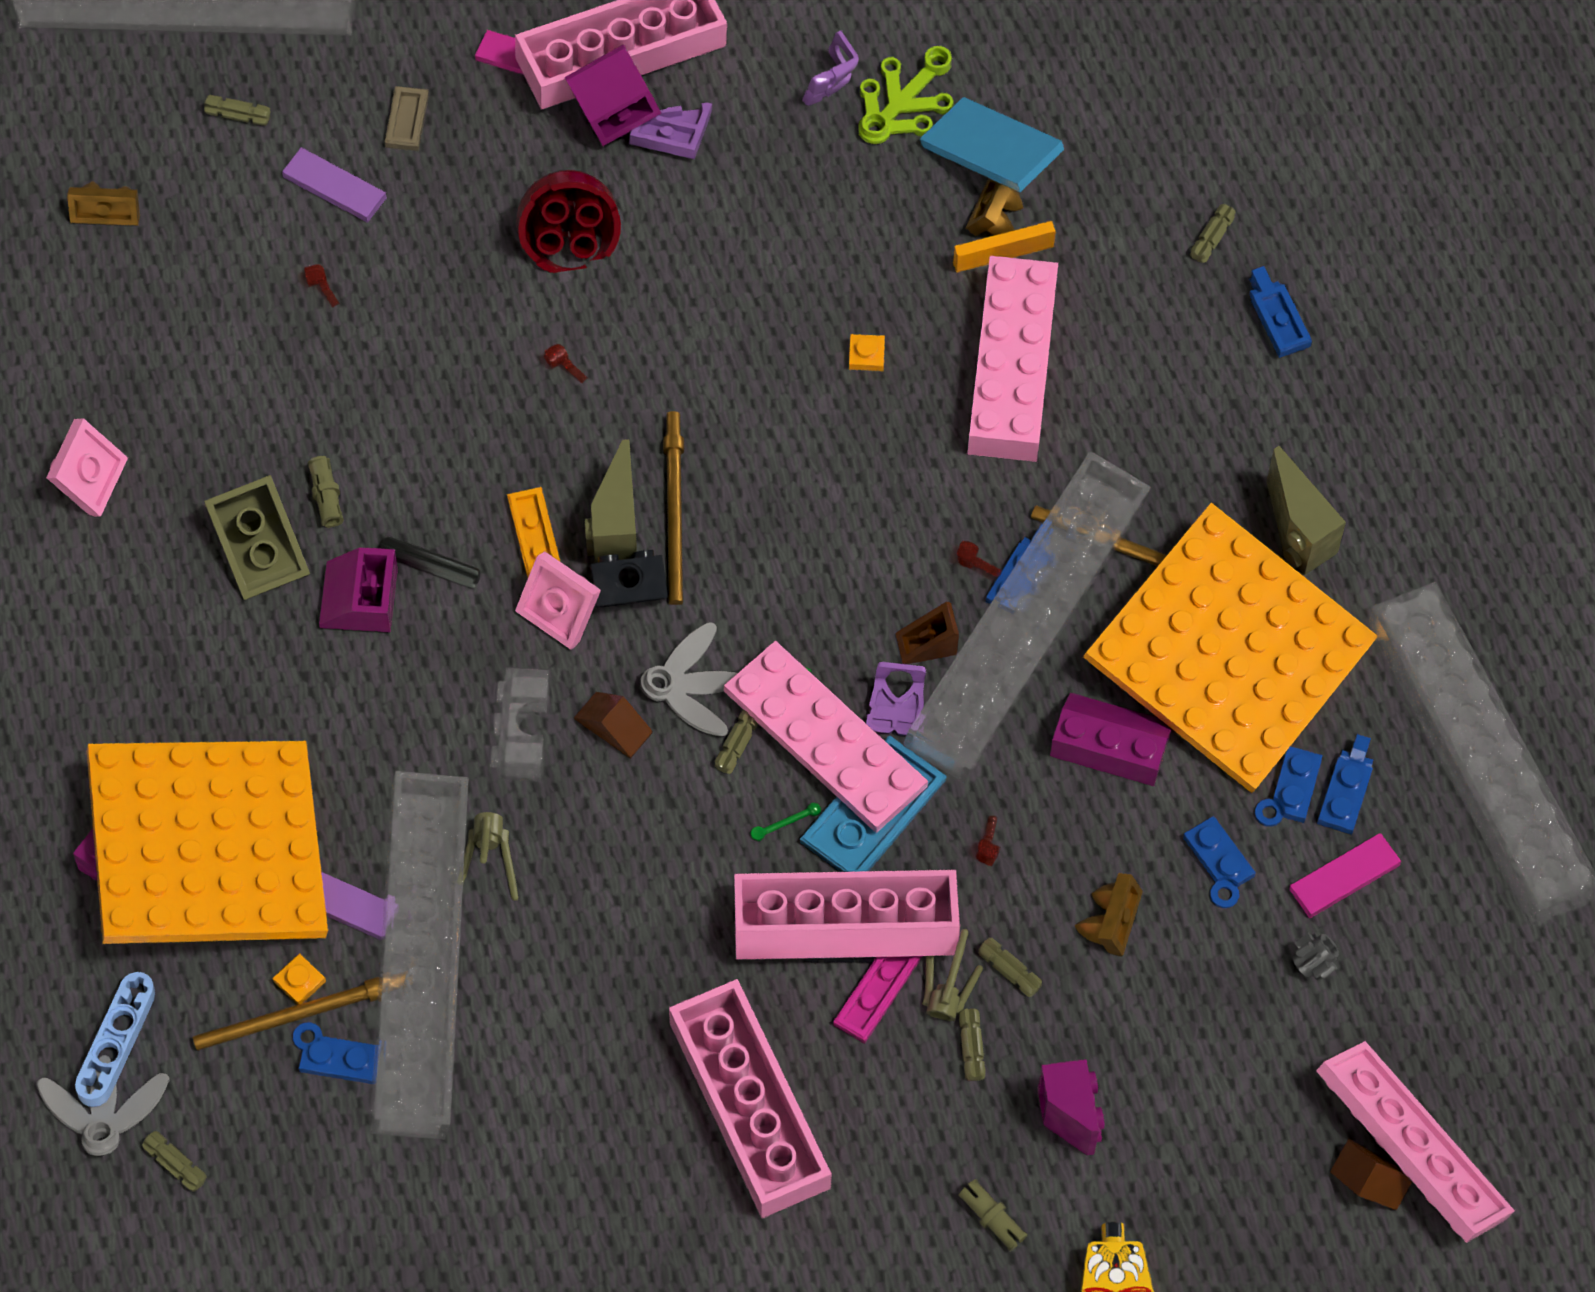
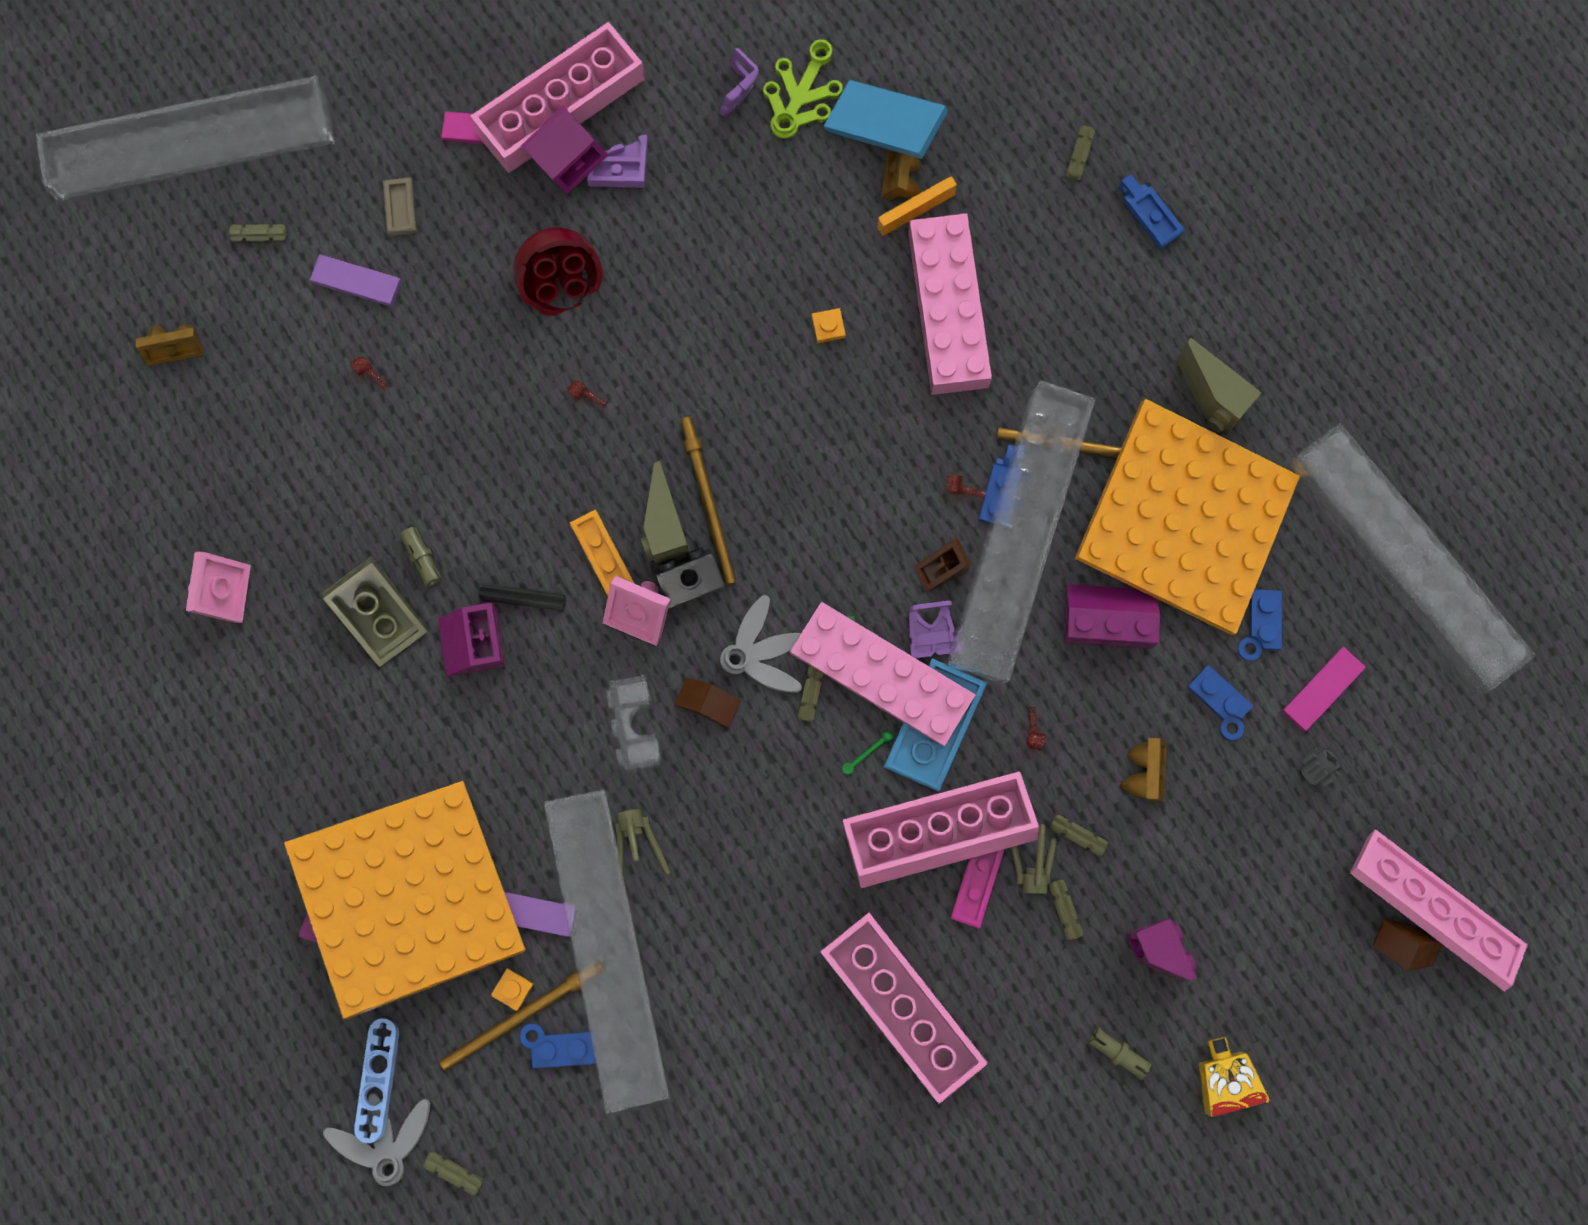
camera: 10 degrees left, 15 degrees up
(1347, 788) = (1307, 612): blue hinge -> none

